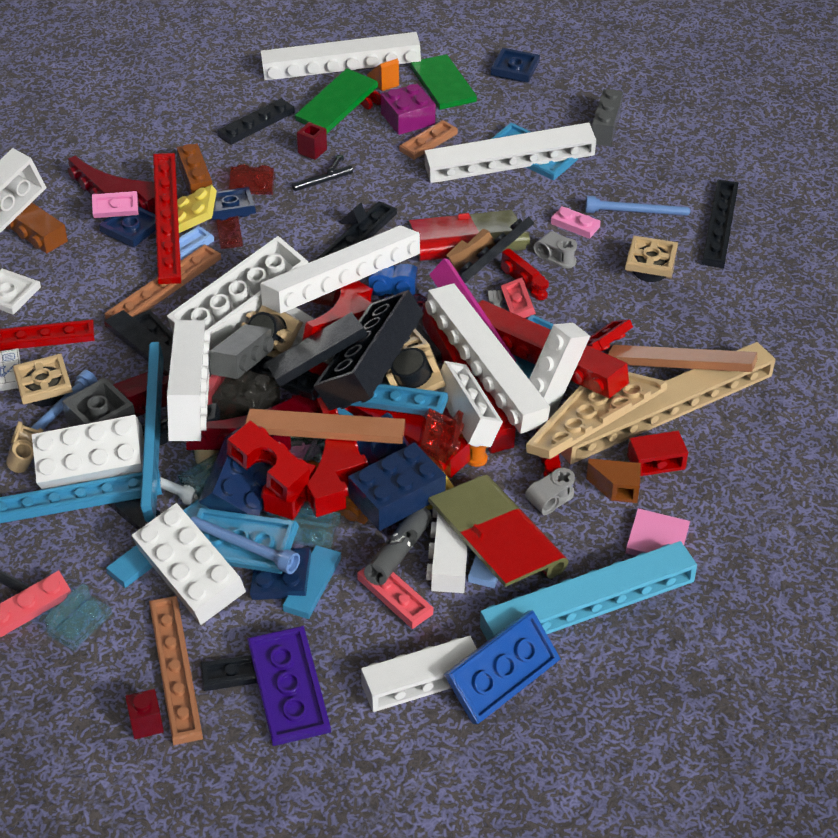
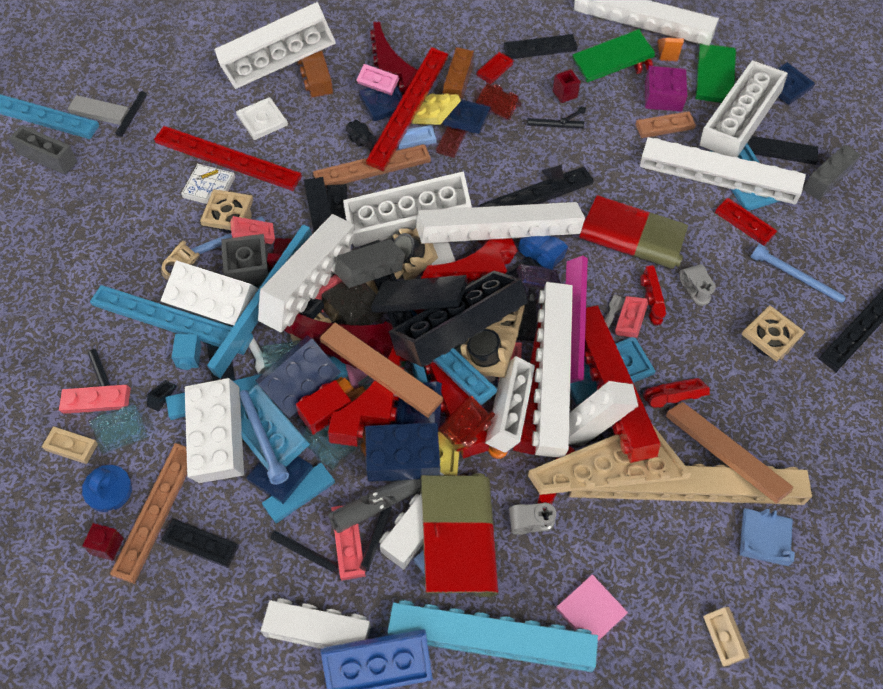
camera: 30 degrees right, 15 degrees up
(33, 656) = (69, 445): none -> tan plate
(79, 380) = (247, 227): none -> coral plate
(97, 518) = (186, 351): none -> dark azure brick
(97, 572) = (157, 396): none -> black piece
(106, 673) = (107, 488): none -> blue tile
(131, 260) = (360, 134): none -> black piece
(224, 155) = (495, 68): none -> red tile
(255, 445) = (304, 362): red arch -> none
(288, 685) = (216, 578): dark purple tile -> none
(357, 624) = (304, 551): none -> black bar
(420, 577) = (375, 539): none -> black bar
(466, 252) = (625, 253): medium nougat slope -> none
(494, 95) = (743, 109): none -> white brick
(501, 242) = (649, 258): black plate -> none
(531, 122) = (783, 150): none -> black tile
(560, 186) = (745, 221): none -> red tile
(575, 222) = (734, 263): bright pink plate -> none
(615, 479) = (592, 537): dark orange slope -> none
(658, 452) = (645, 530): red brick -> none
(760, 410) = (766, 537): none -> medium blue piece
(784, 496) = (726, 636): none -> tan plate

